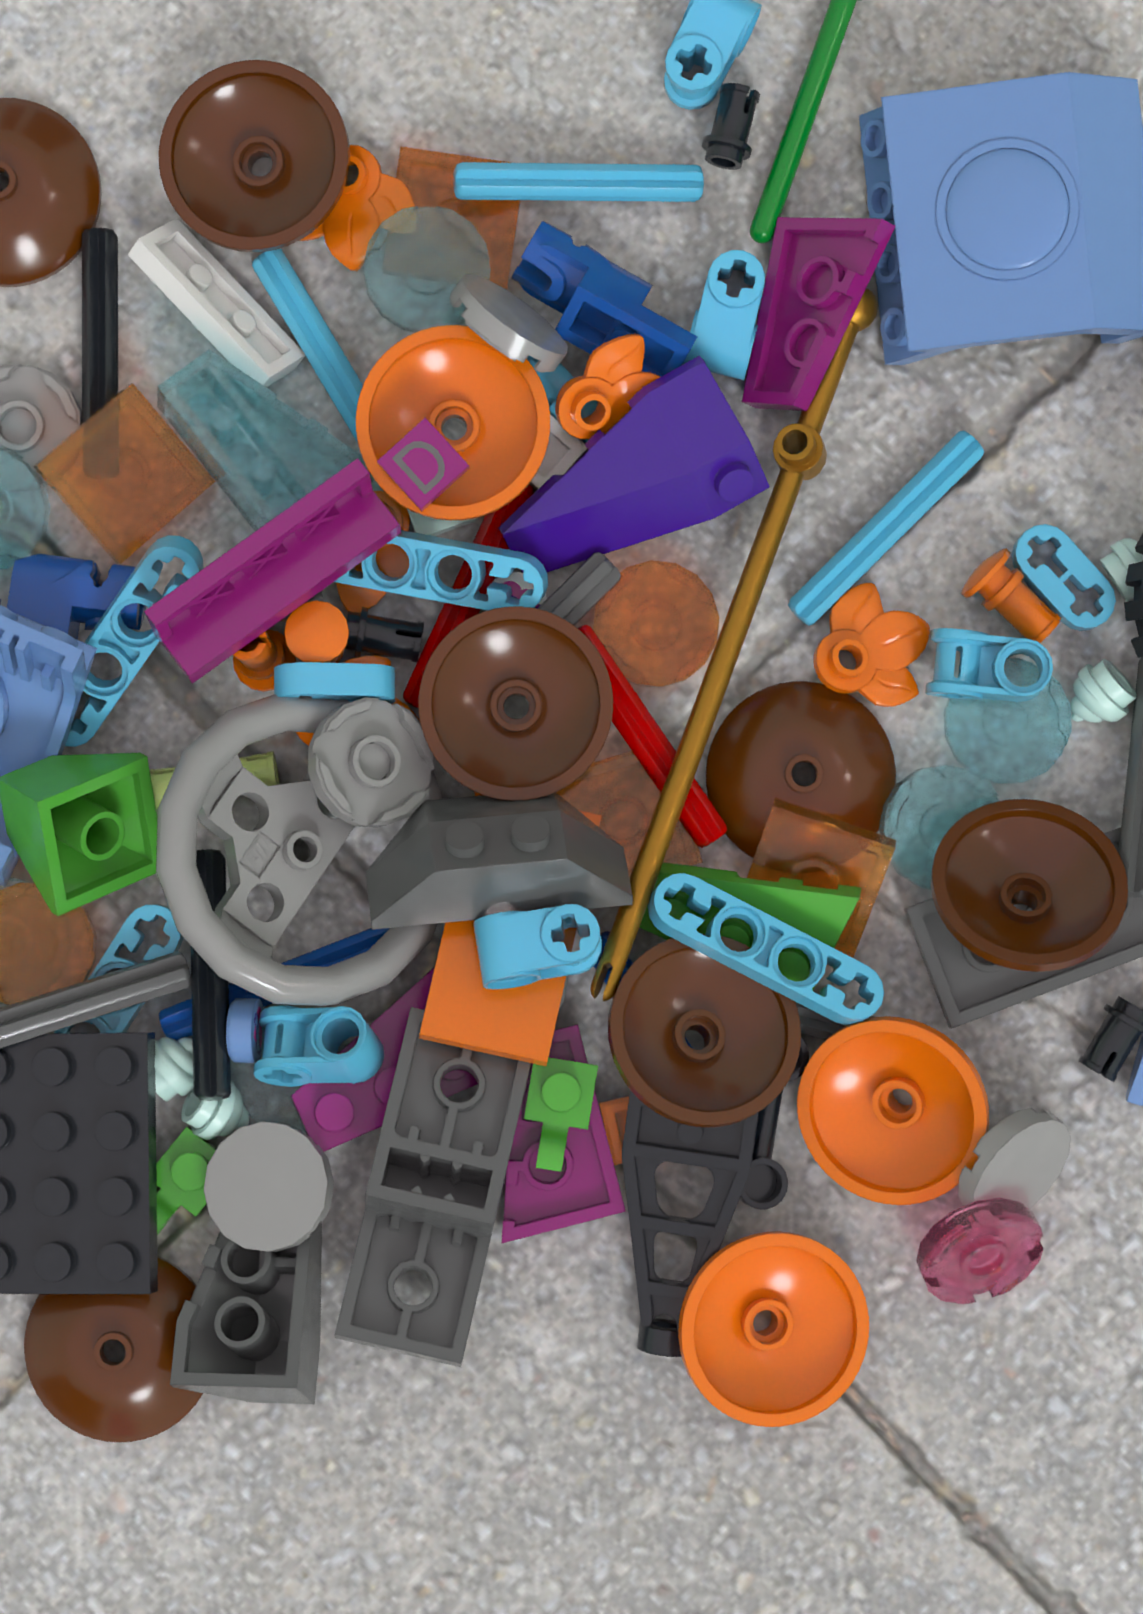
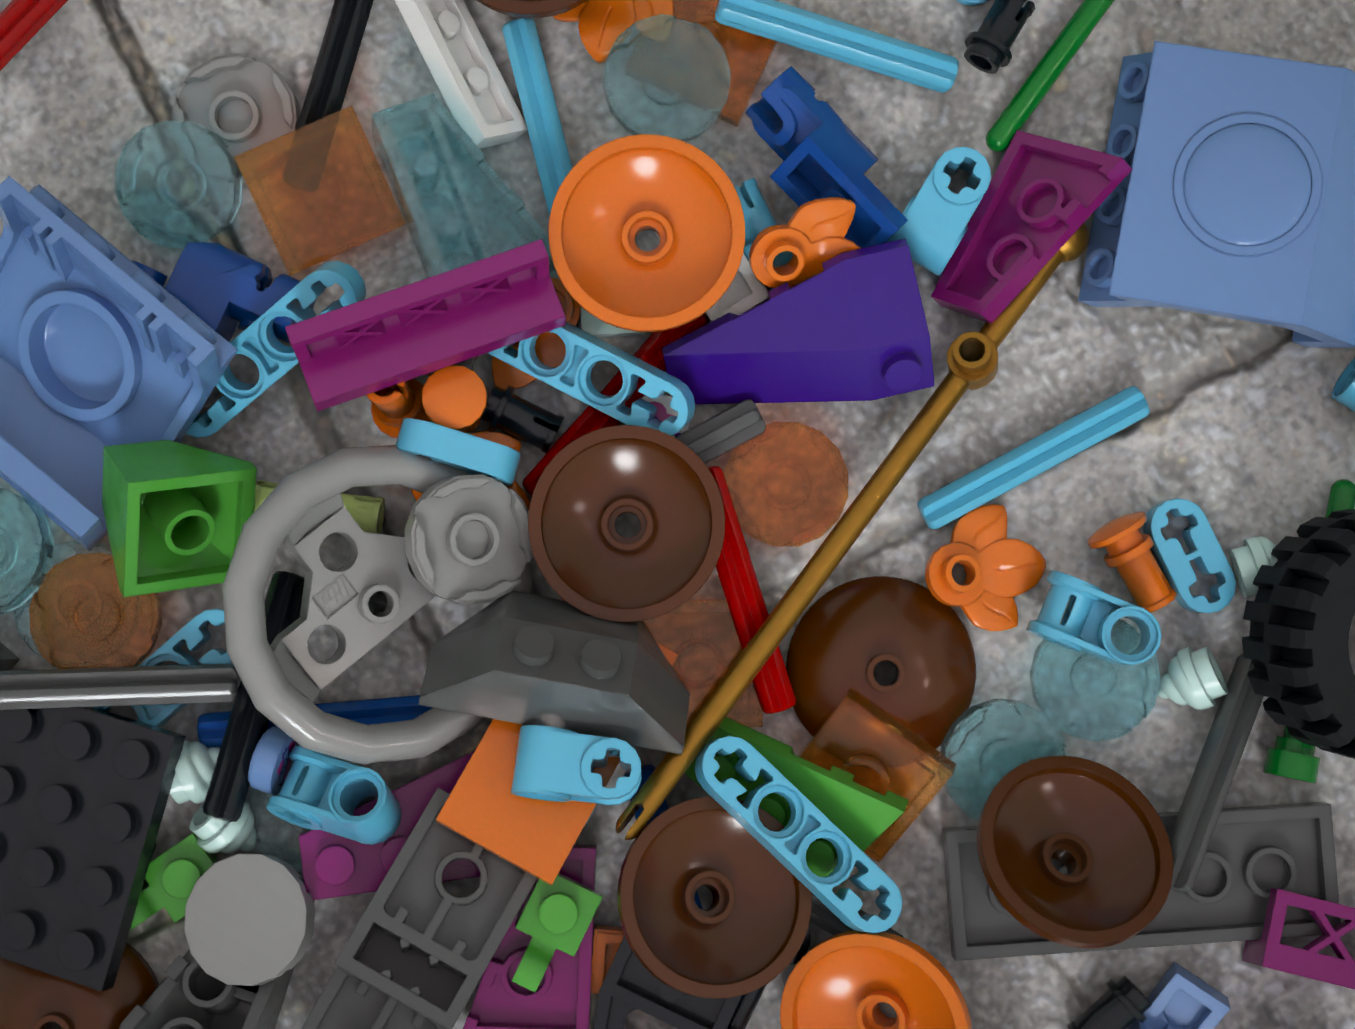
camera: 20 degrees right, 0 degrees up
(423, 464) = (605, 264): magenta tile -> none
(508, 323) = (728, 152): light grey tile -> none

